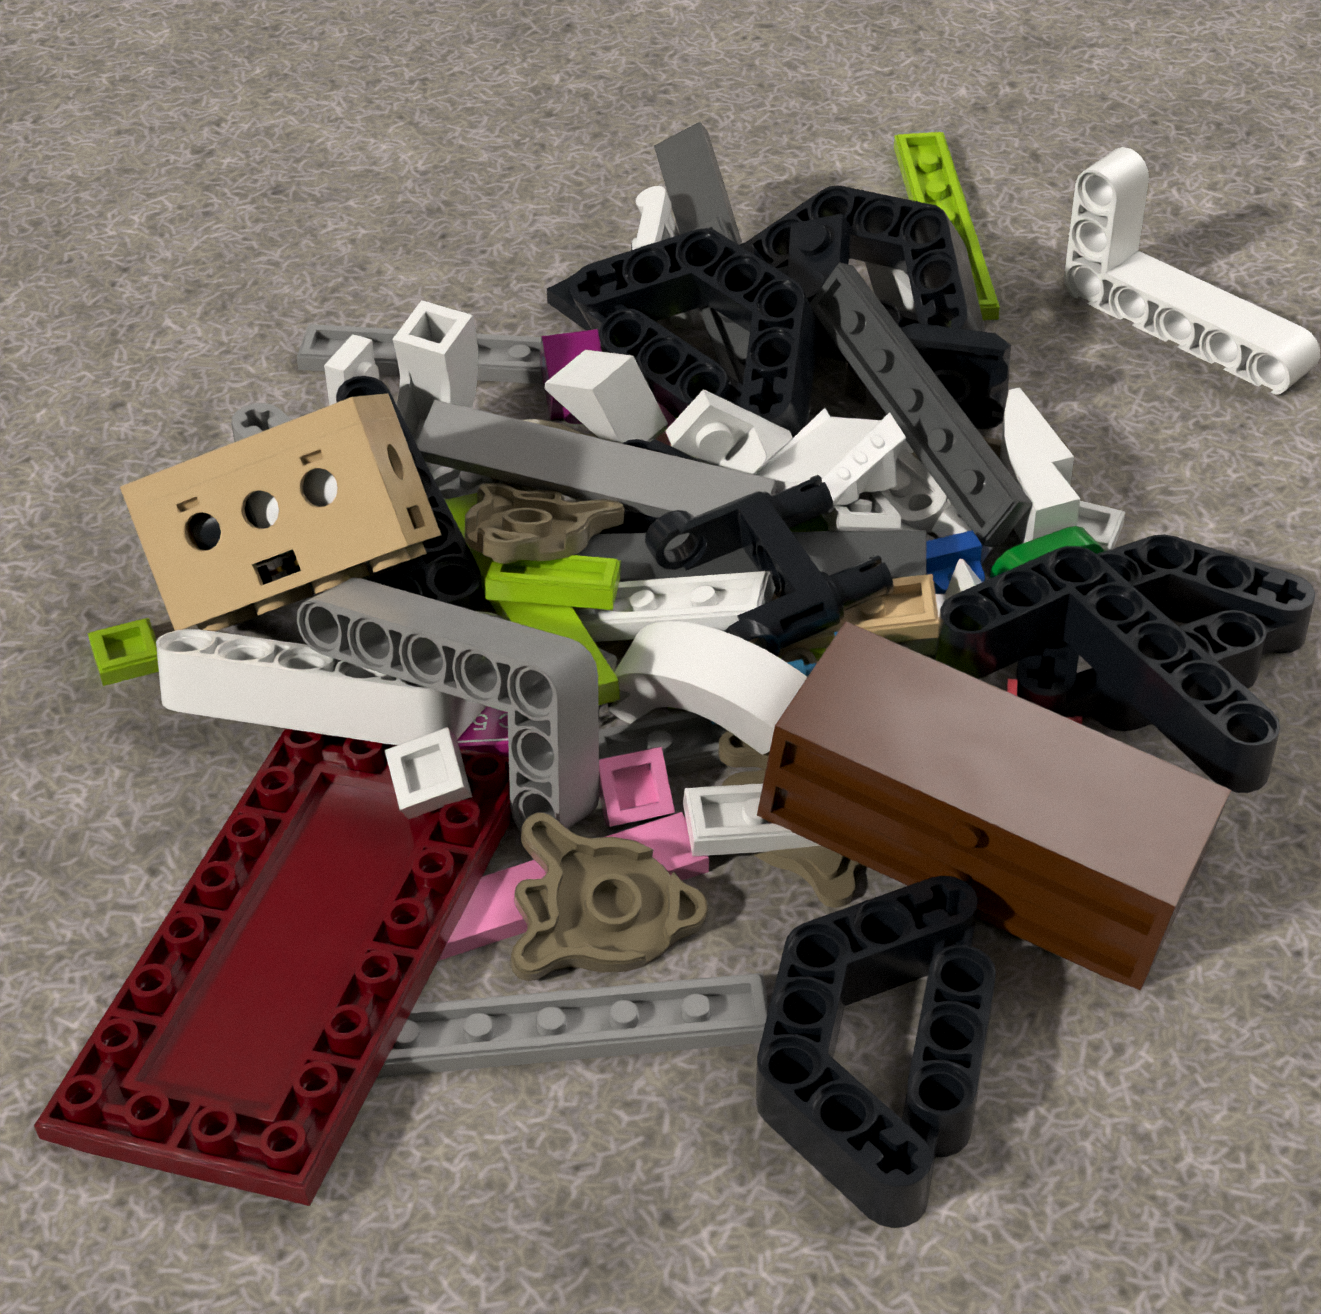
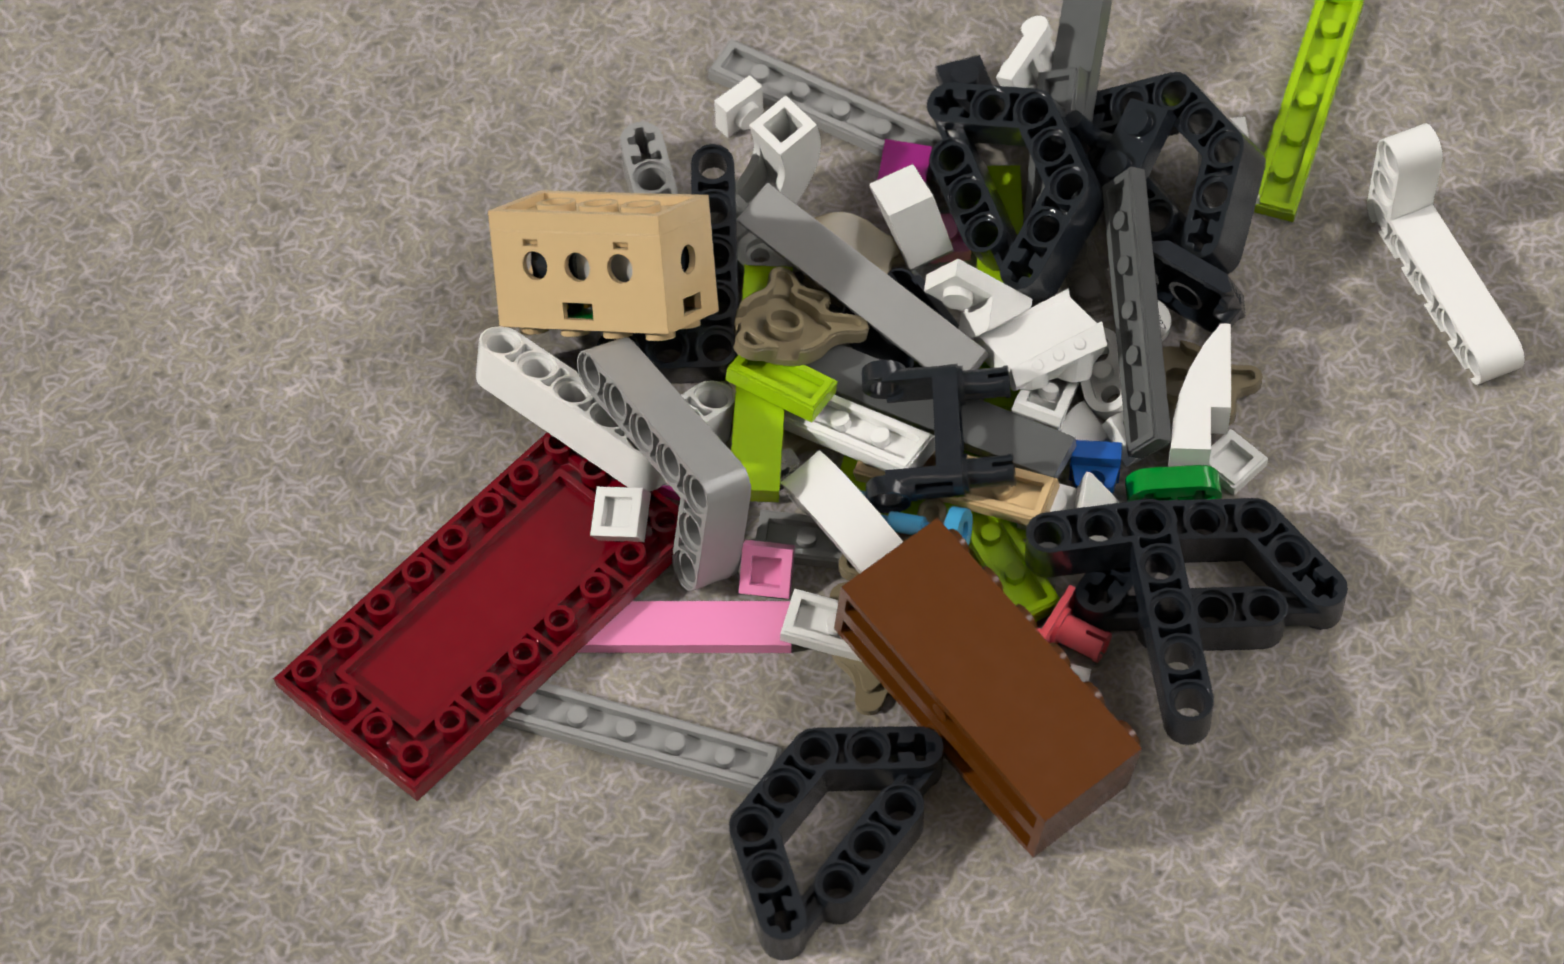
camera: 25 degrees right, 15 degrees up
(124, 651) = (470, 313): lime tile -> none
(598, 904) = (696, 656): dark tan tile -> none

